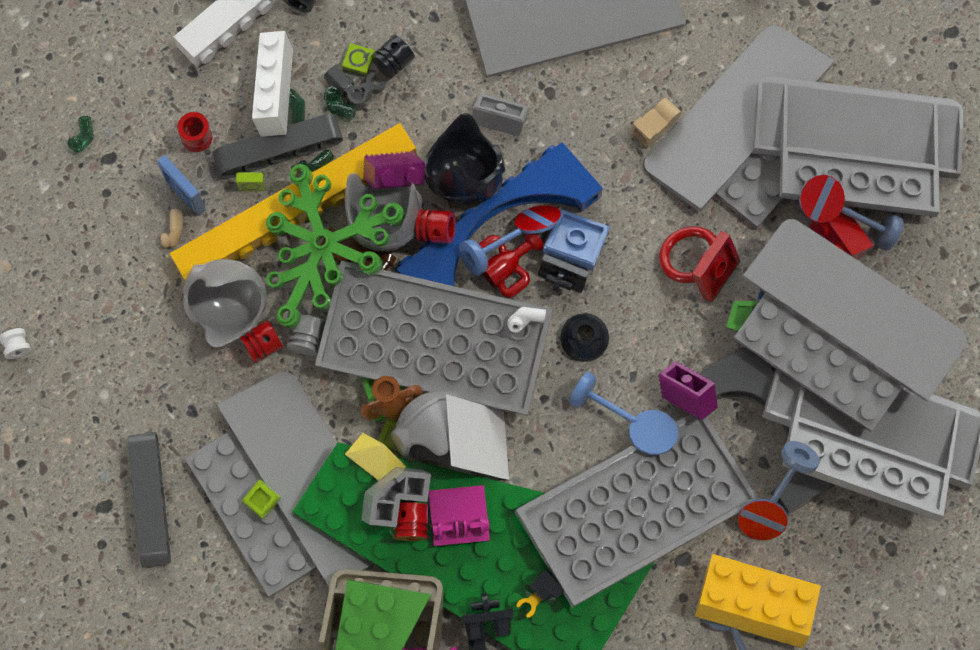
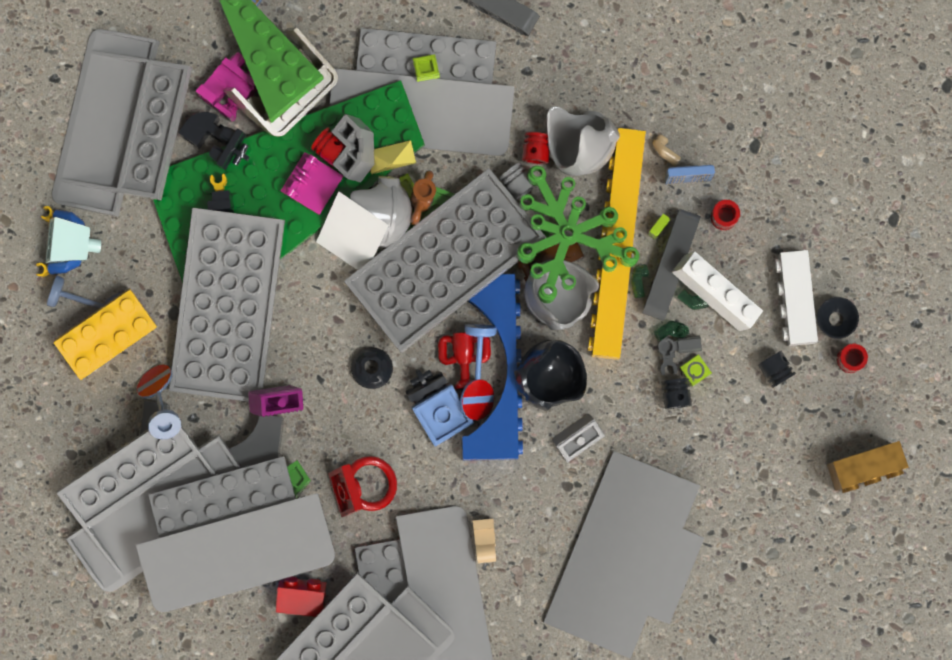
camera: 130 degrees right, 10 degrees up
(84, 138) = (782, 139): clear green arm -> none
(394, 170) = (585, 324): magenta brick -> none
(435, 226) = (521, 319): red piece -> none
(524, 316) = (408, 326): white arm -> none
(649, 431) = (269, 355): medium blue piece -> none
(824, 199) = (329, 599): piece -> none

